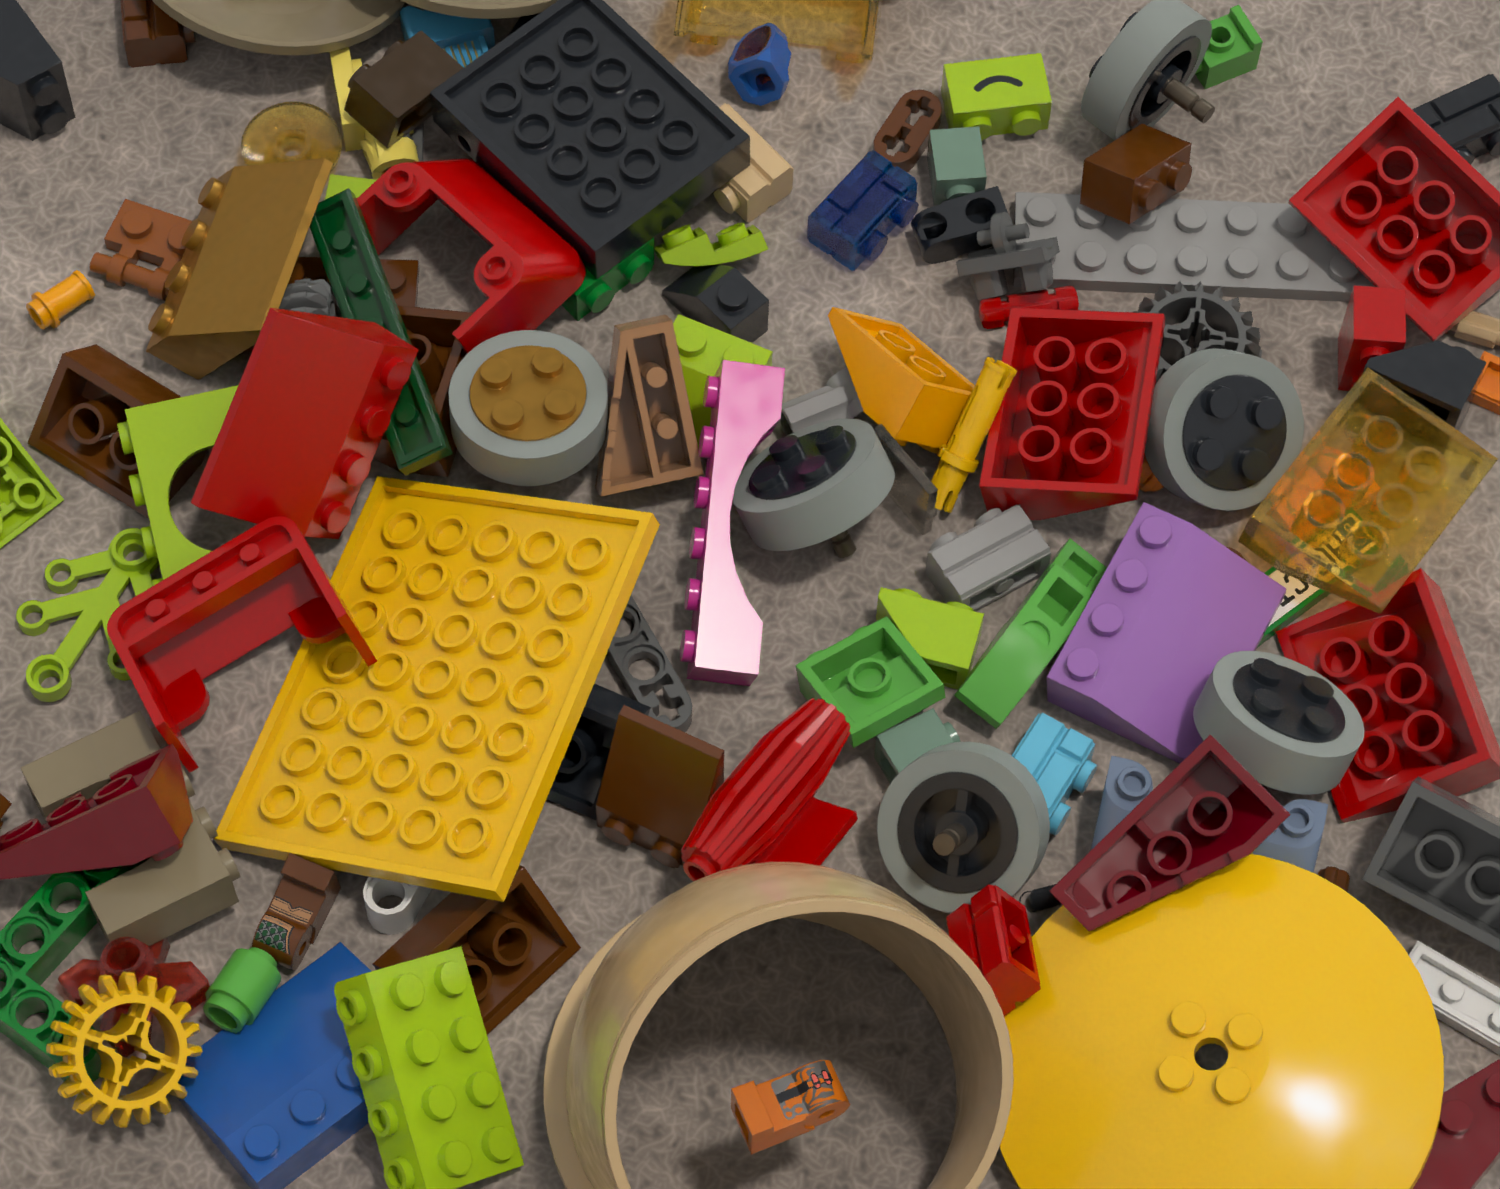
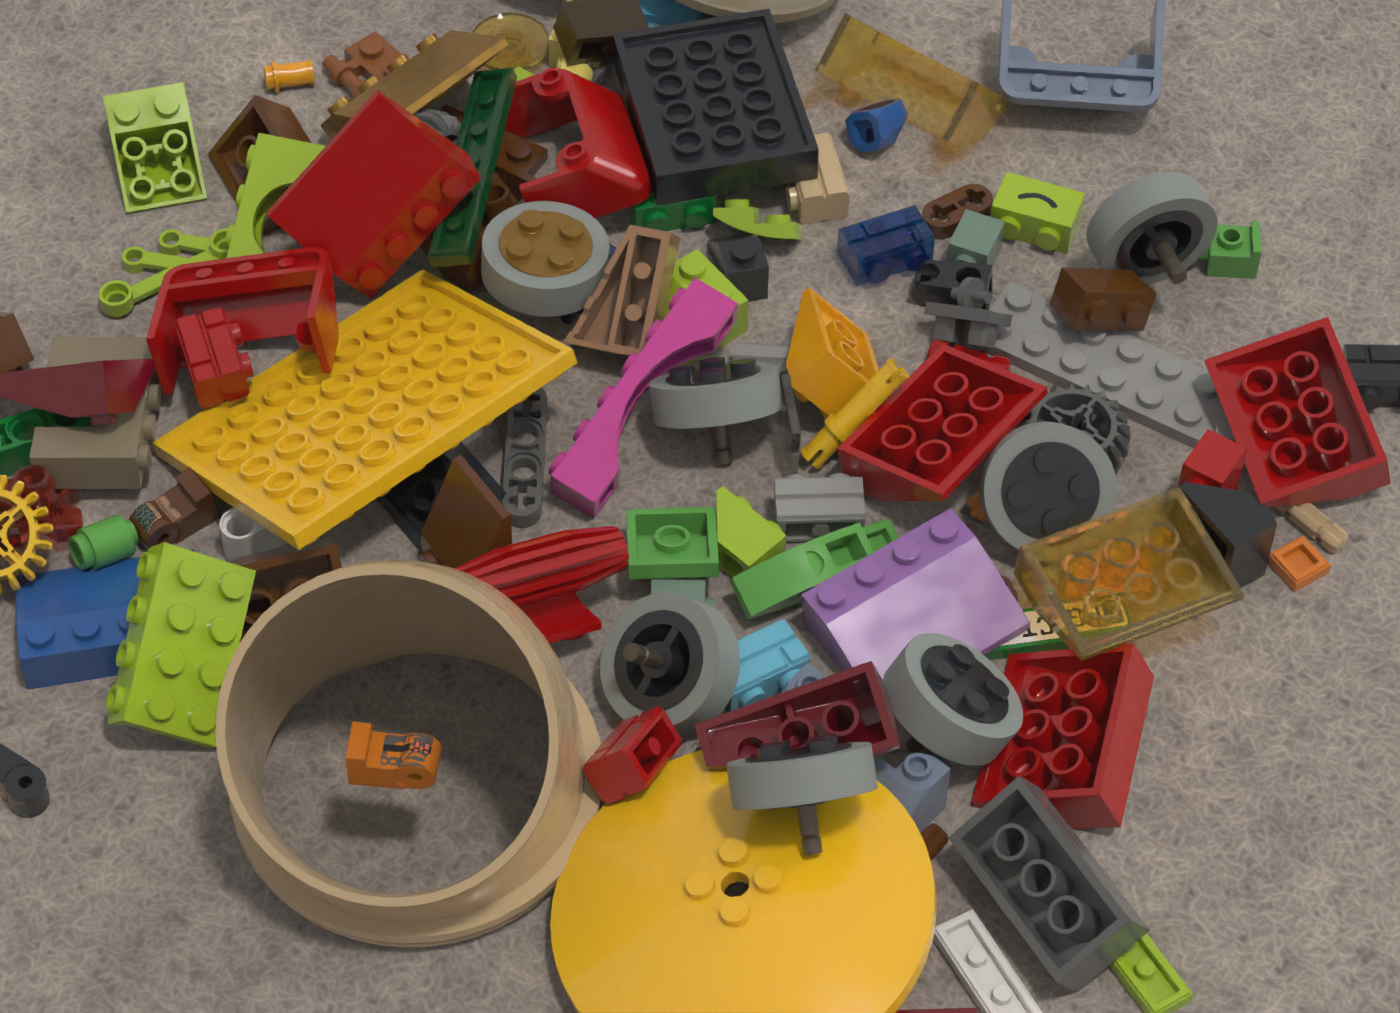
camera: 30 degrees right, 10 degrees down
(227, 704) = (213, 357): none -> red brick
(1232, 908) = (802, 779): none -> light grey wheel

